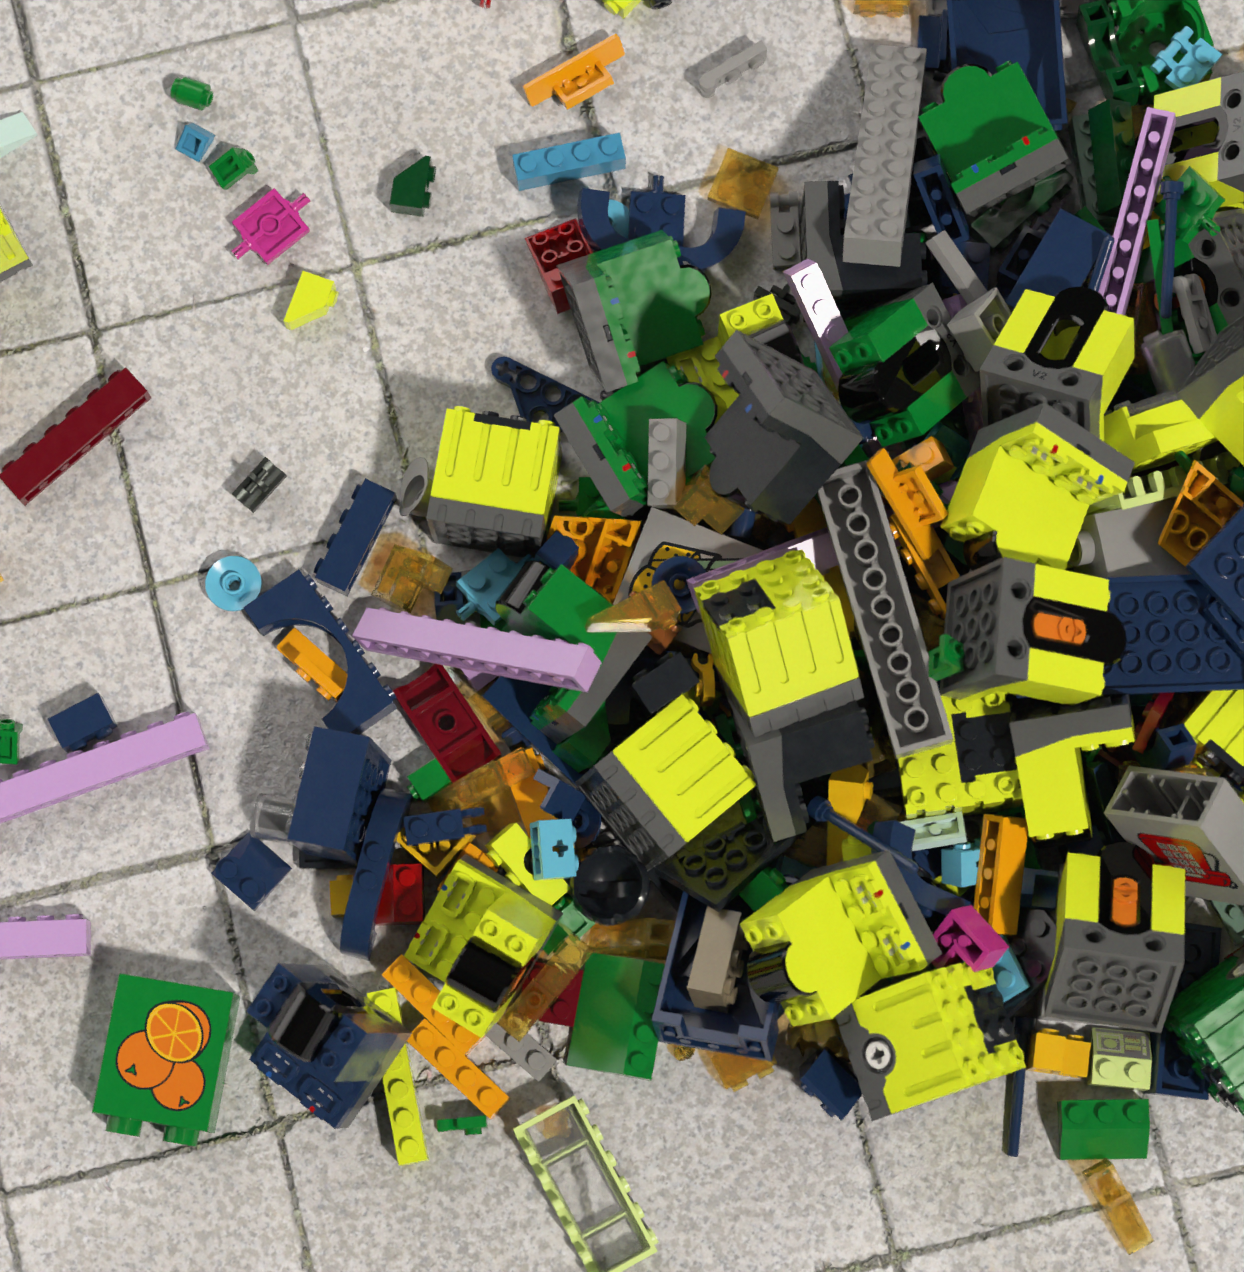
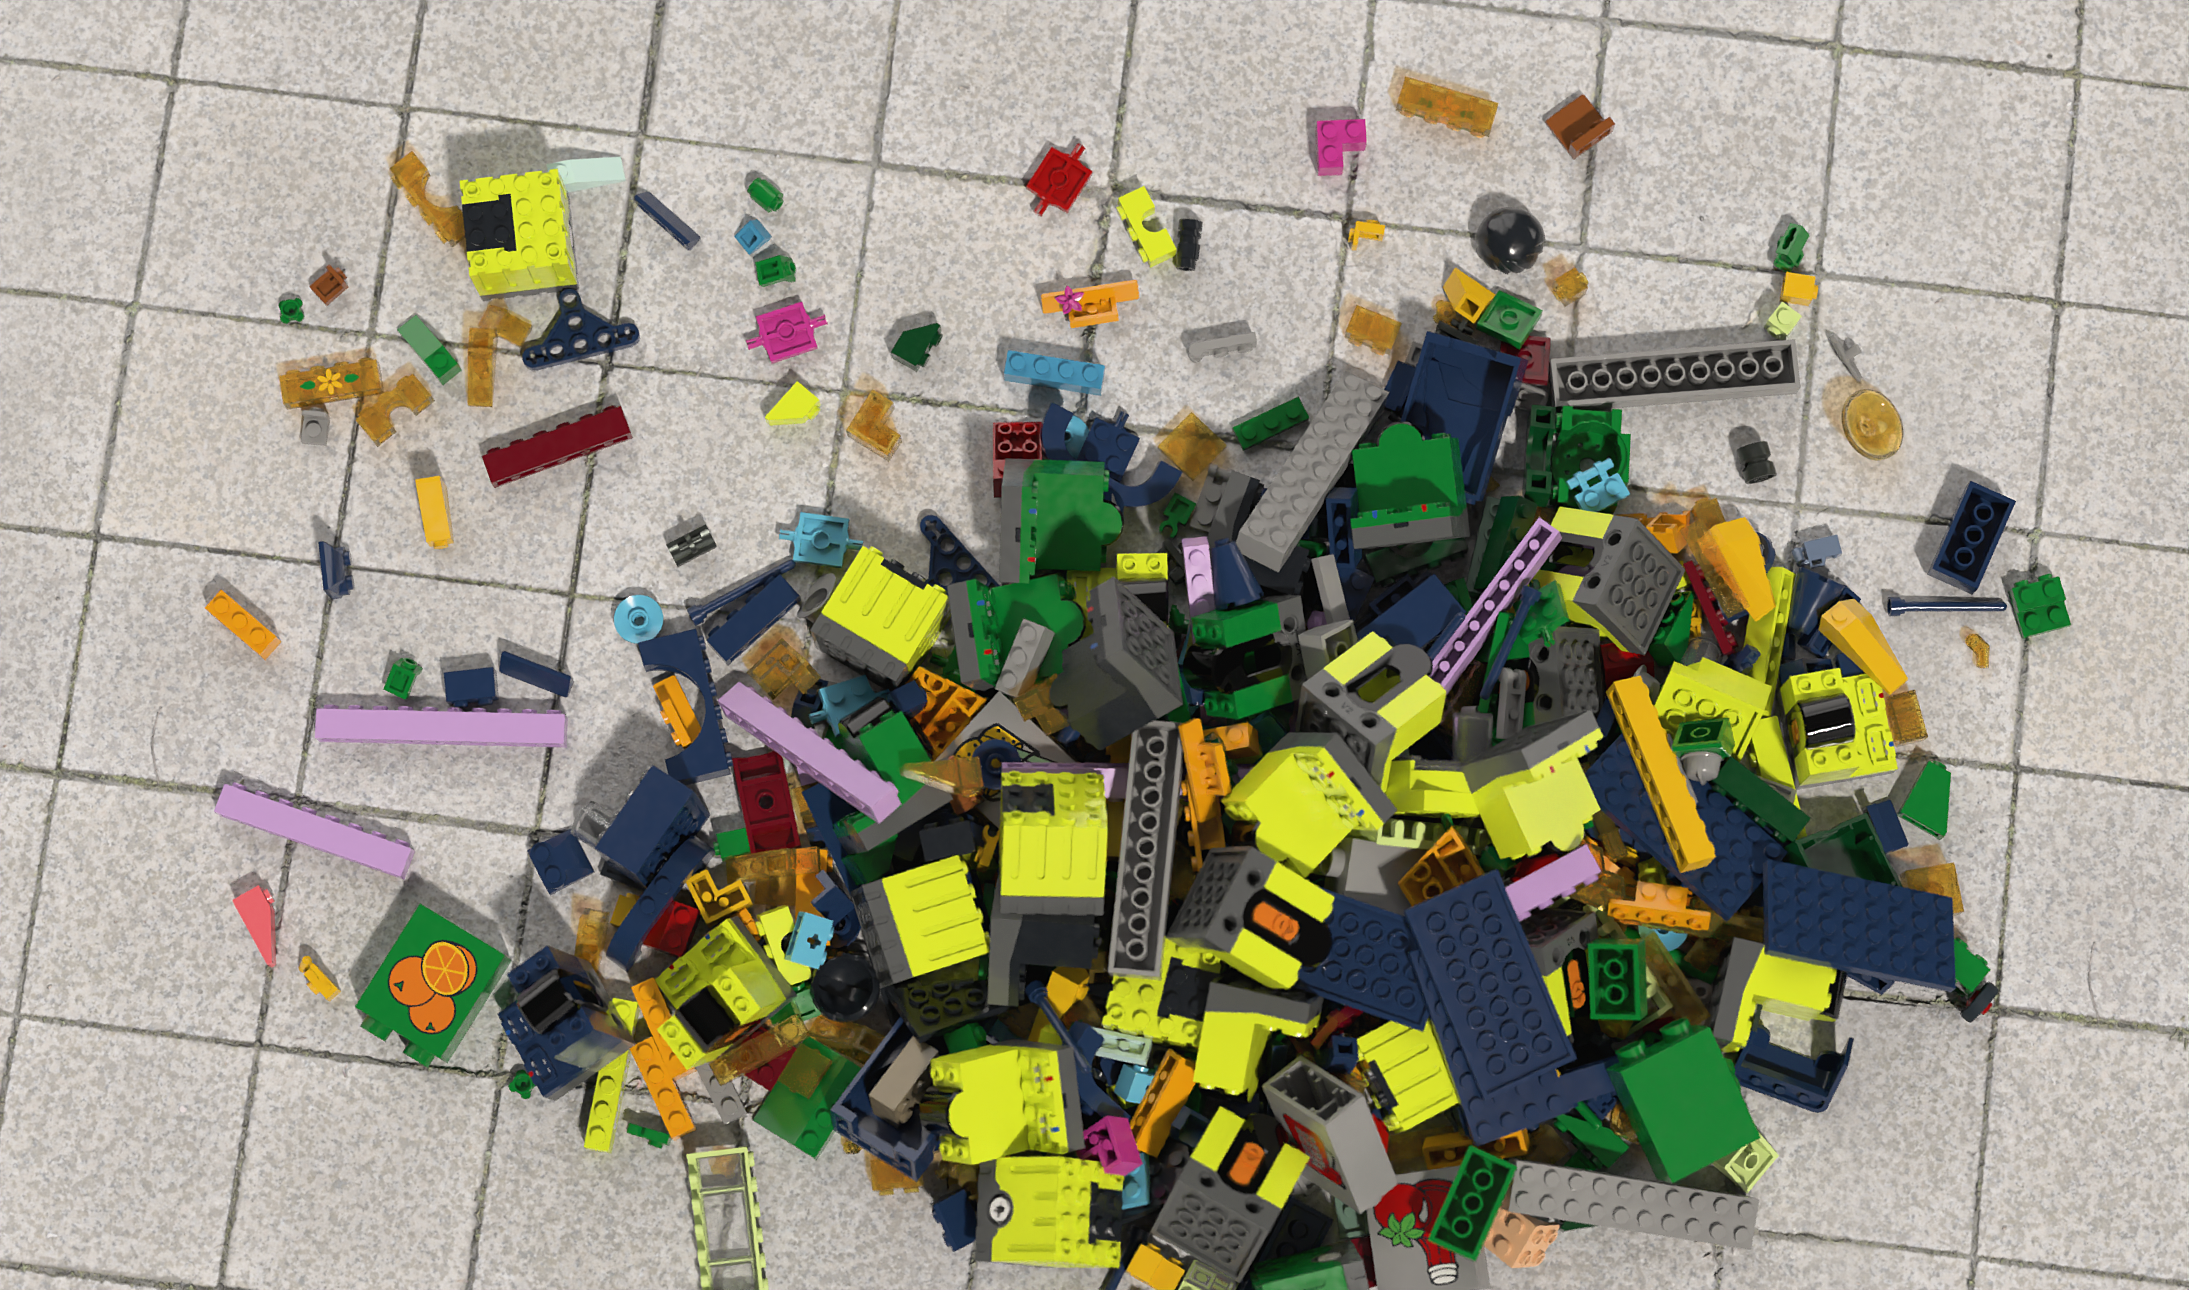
camera: 20 degrees right, 0 degrees up
(40, 320) = (590, 332): none -> dark blue beam
(40, 1099) = (318, 979): none -> yellow piece
(97, 158) = (667, 220): none -> dark blue slope
(146, 683) = (535, 674): none -> dark blue slope
(294, 553) = (700, 612): none -> dark blue piece
(298, 1127) = (515, 1086): none -> green plate
(317, 936) = (592, 936): none -> clear yellow slope
(393, 427) = (821, 540): none -> medium azure plate
(399, 291) = (869, 427): none -> clear yellow brick
(441, 826) = (726, 885): dark blue hinge -> none
(555, 80) = (1070, 300): none -> dark pink plant
(602, 990) = (804, 1070): none -> clear yellow piece
(756, 256) = (1177, 512): none -> green plate
(814, 129) = (1270, 423): none -> green plate
(853, 289) = (1232, 576): none -> dark blue cone
(946, 659) = (1178, 909): green bracket -> none

